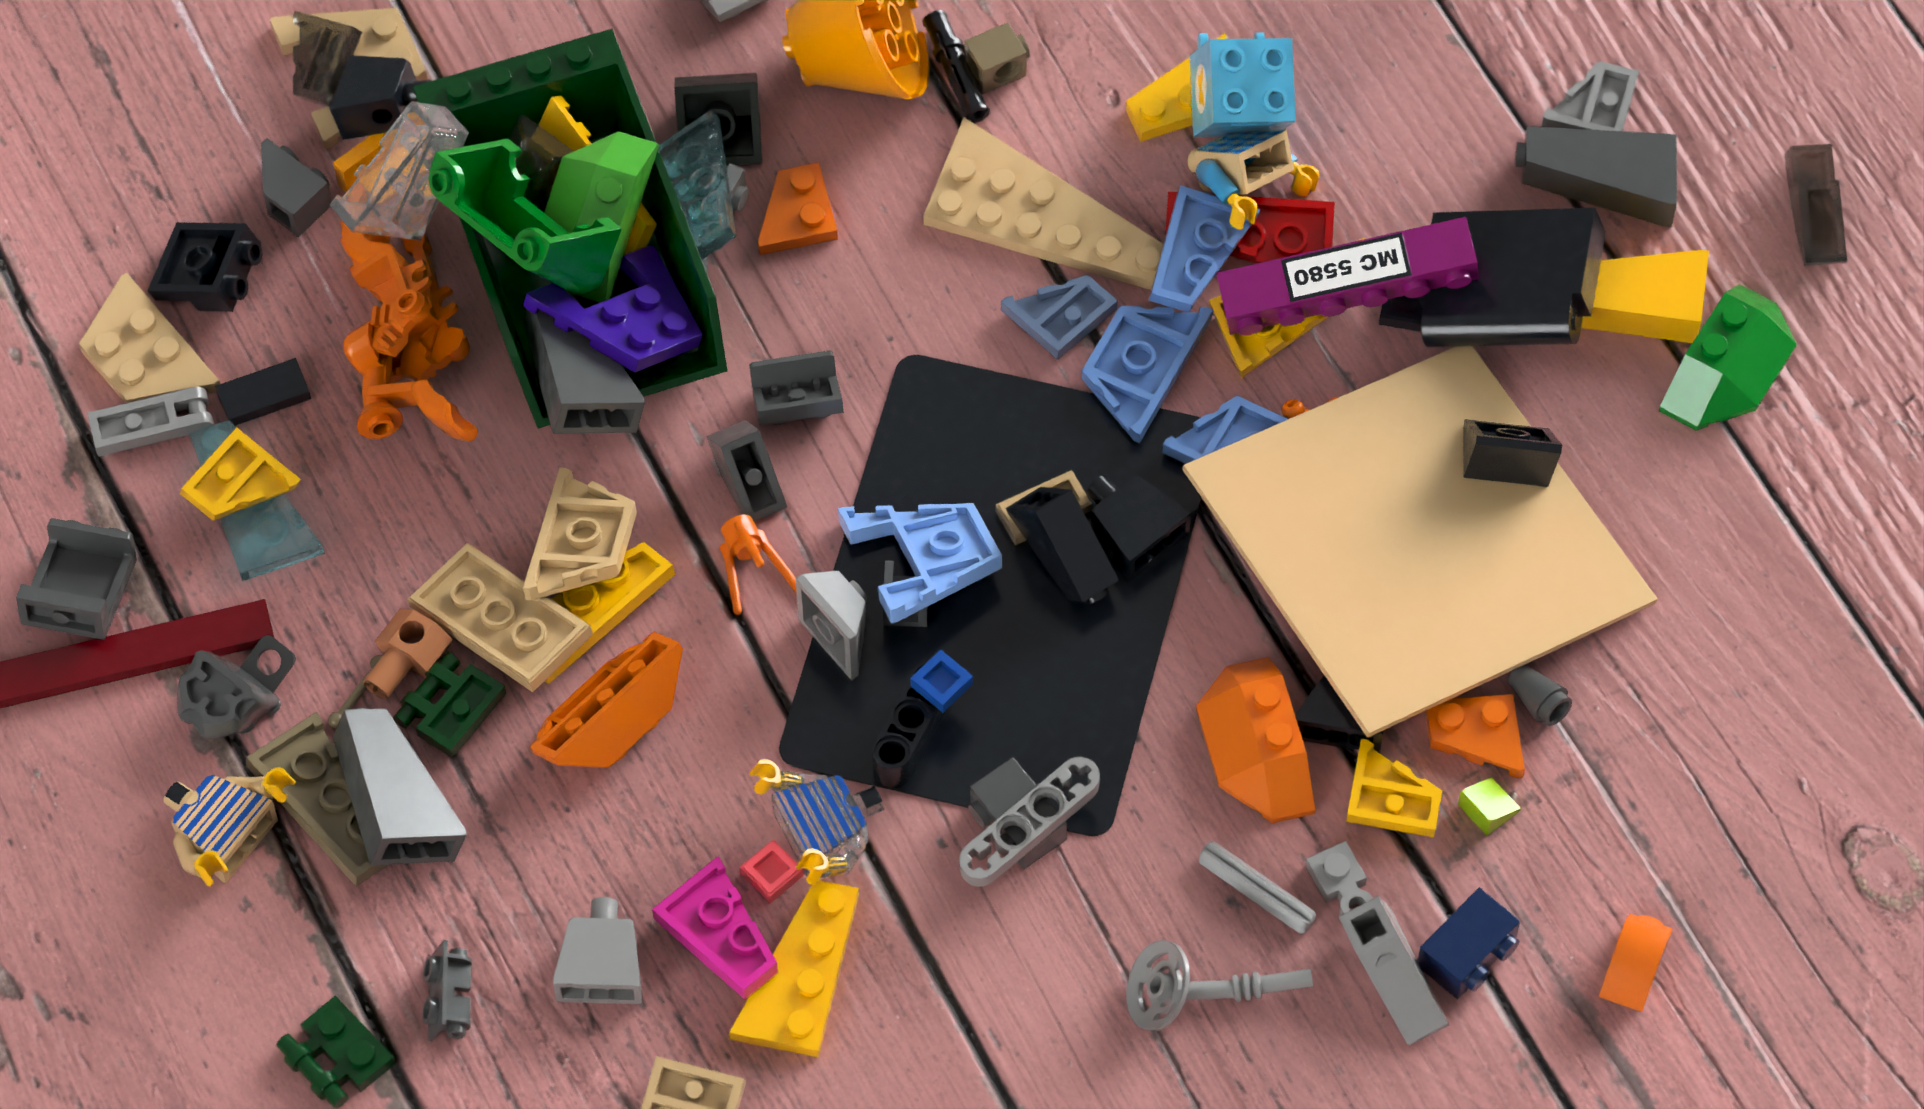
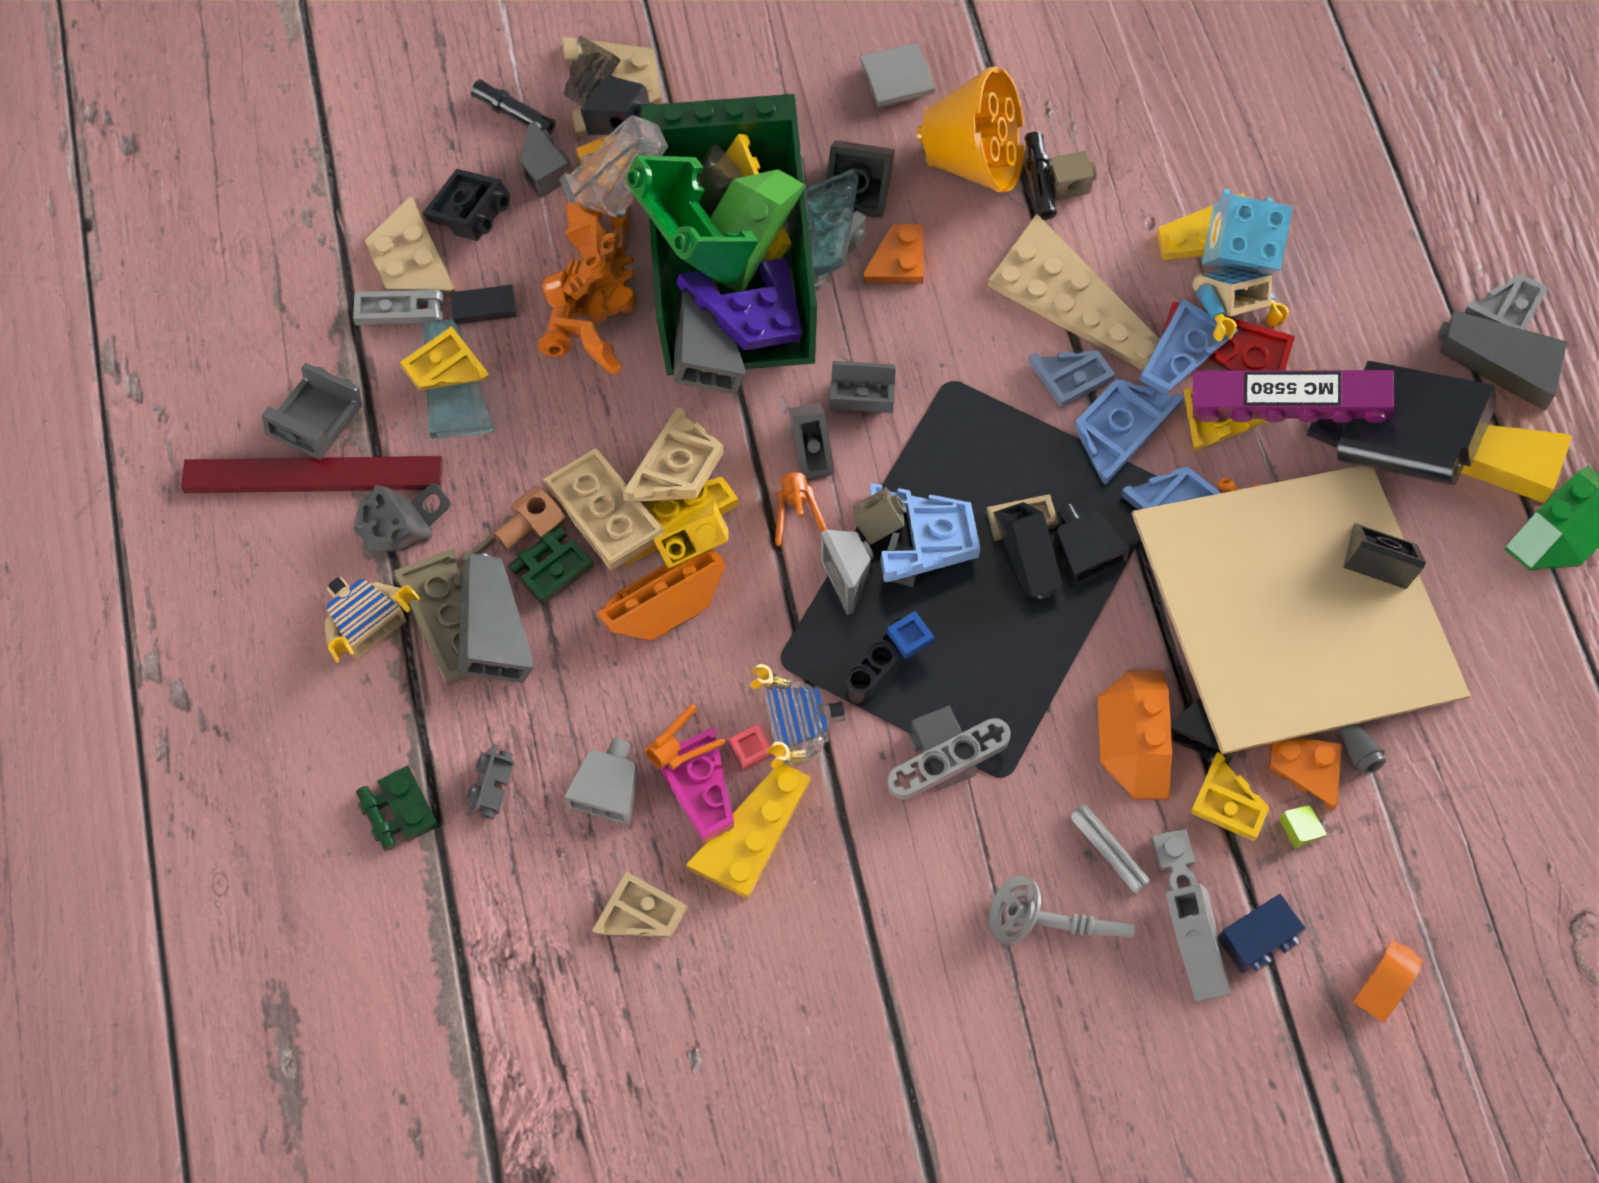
camera: 15 degrees right, 5 degrees up
(213, 121) = (502, 102): none -> black pin
(627, 622) = (692, 535): none -> yellow slope
(666, 892) = (665, 748): none -> orange plant
(862, 543) = (879, 515): none -> dark tan brick

